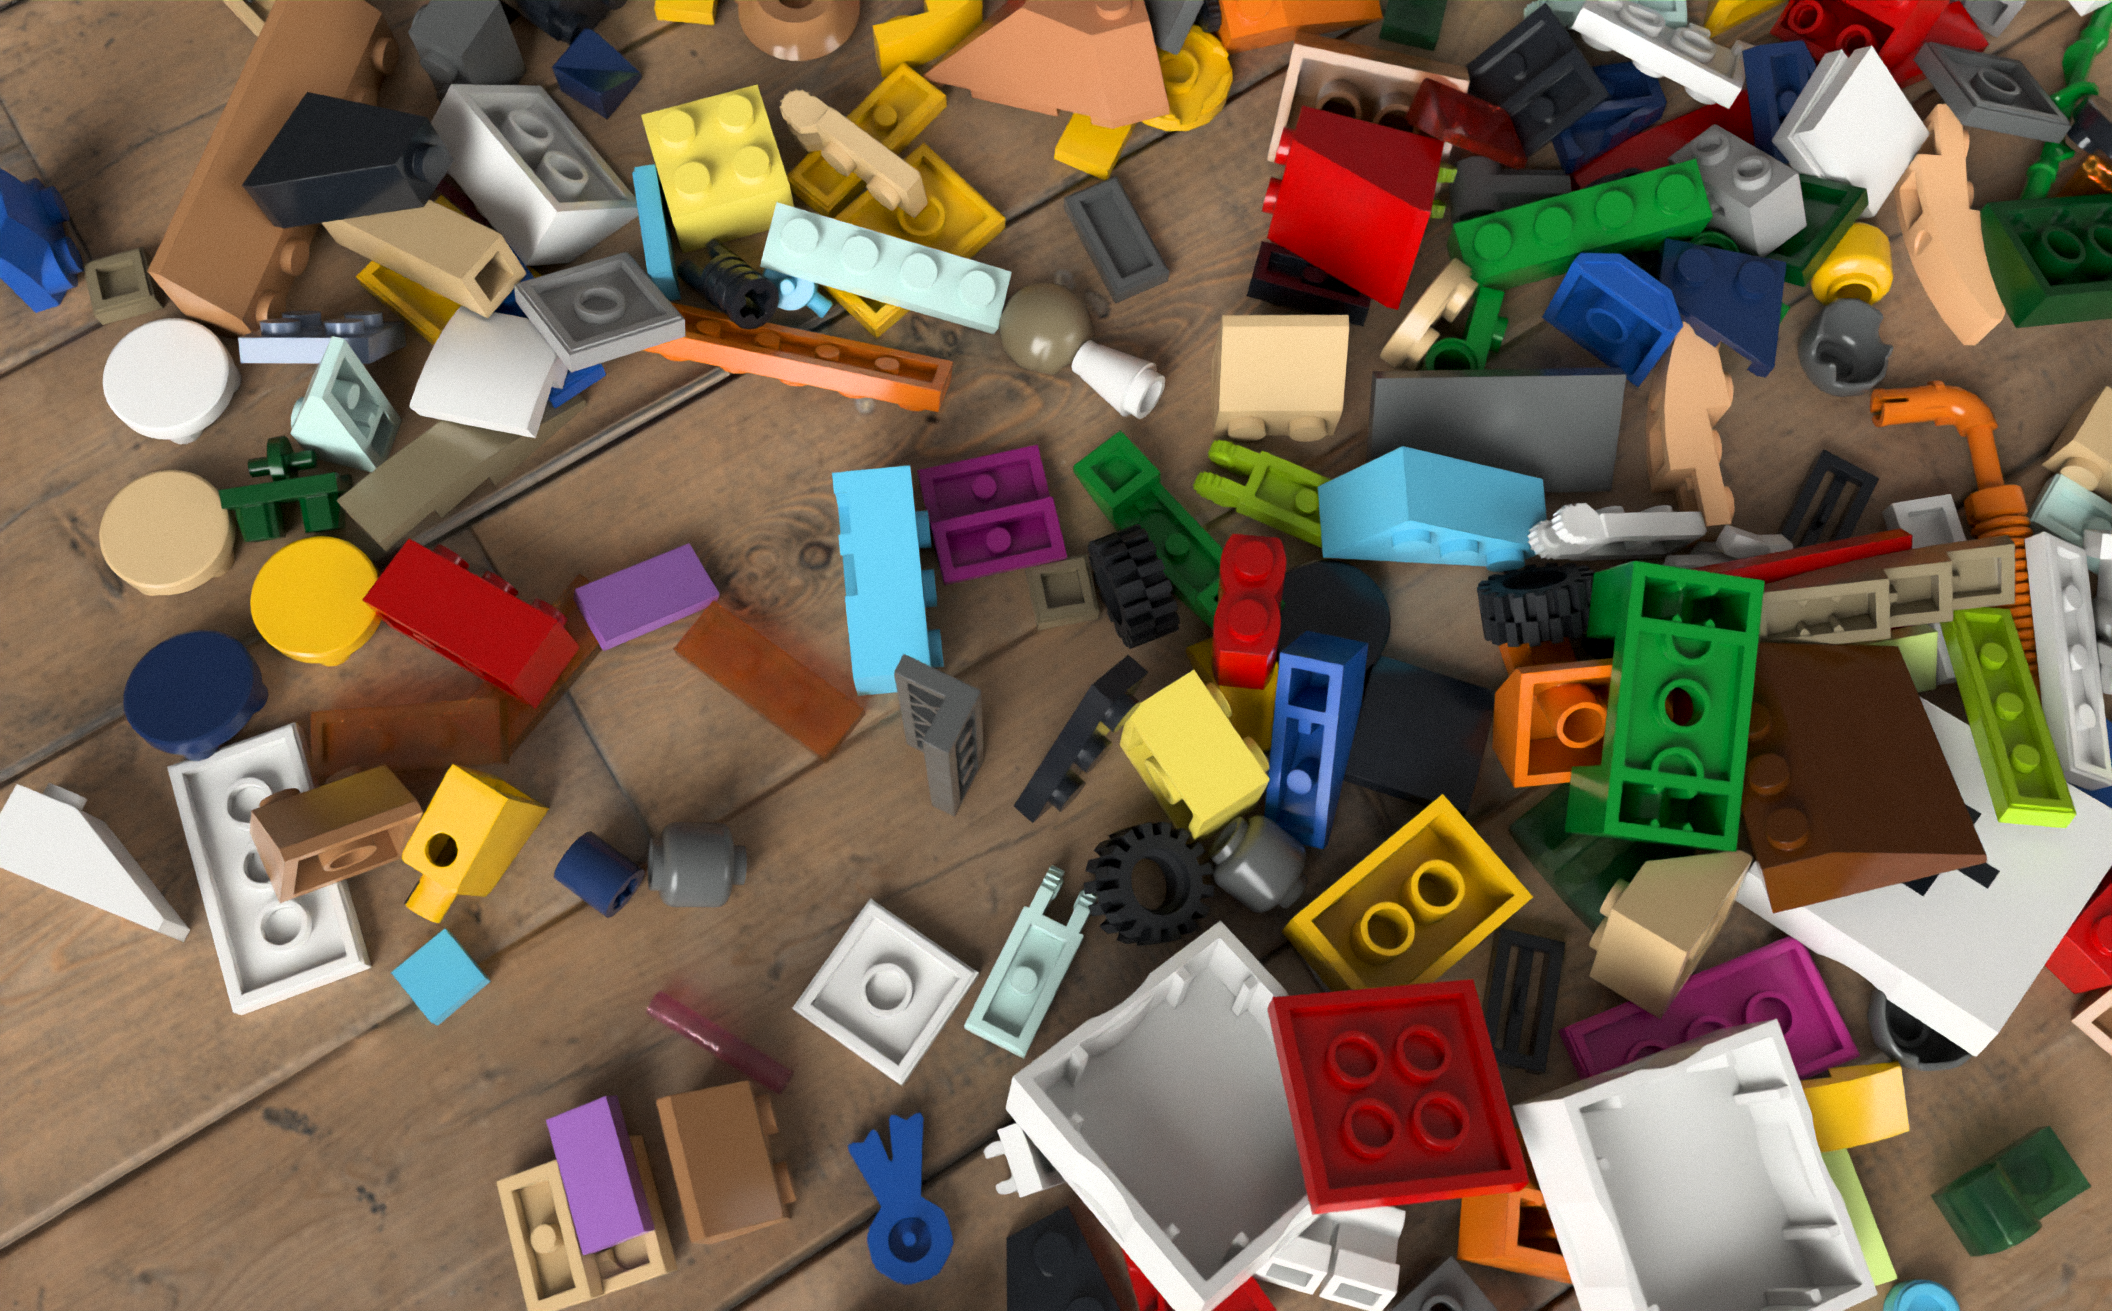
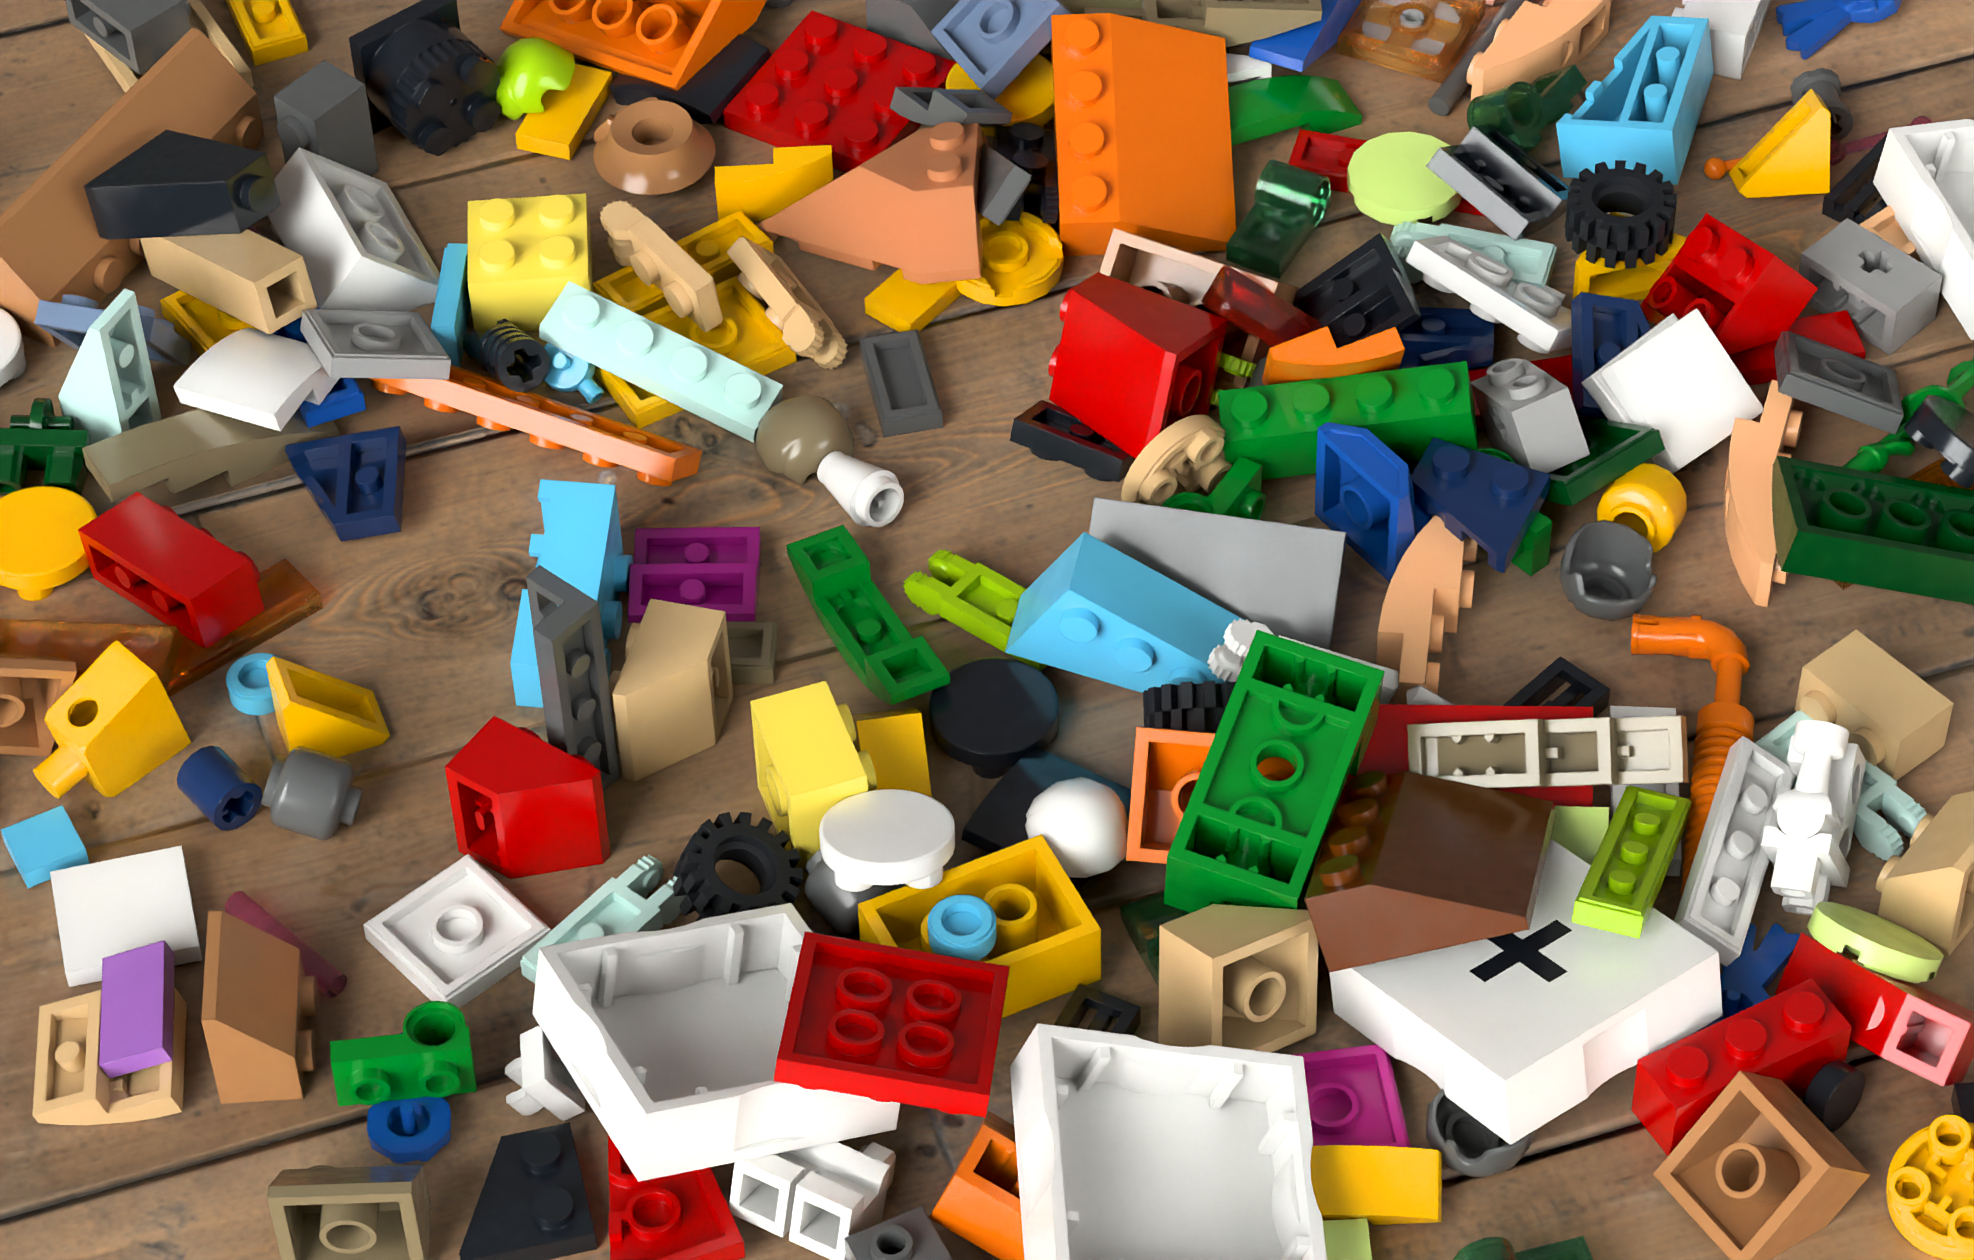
camera: 20 degrees right, 25 degrees down
(548, 1045) = (122, 907): none -> white tile
(595, 73) = (440, 177): dark blue slope -> none
(597, 727) = (249, 684): none -> medium azure tile
(621, 464) = (355, 480): none -> dark blue wing
(645, 596) = (341, 582): medium lavender tile -> none
(679, 760) = (323, 710): none -> yellow slope
(769, 681) = (432, 672): clear orange tile -> none
(866, 1213) = (424, 1061): none -> green plate
(919, 849) = (526, 803): none -> red slope
(988, 170) = (790, 305): none -> tan hinge
(1025, 669) = (671, 687): none -> tan slope
(1083, 740) = (702, 729): black plate -> none
(1134, 586) = (806, 635): black tyre -> none
(1248, 611) = (899, 655): red brick -> none
(1278, 376) = (1010, 495): tan slope -> none
(1304, 842) = (887, 839): none -> white tile
(1313, 732) = (951, 748): blue slope -> none
(1407, 933) = (962, 927): none -> medium azure tile
(1462, 758) = (1081, 825): none -> white hair
(1565, 176) = (1318, 358): none -> orange slope

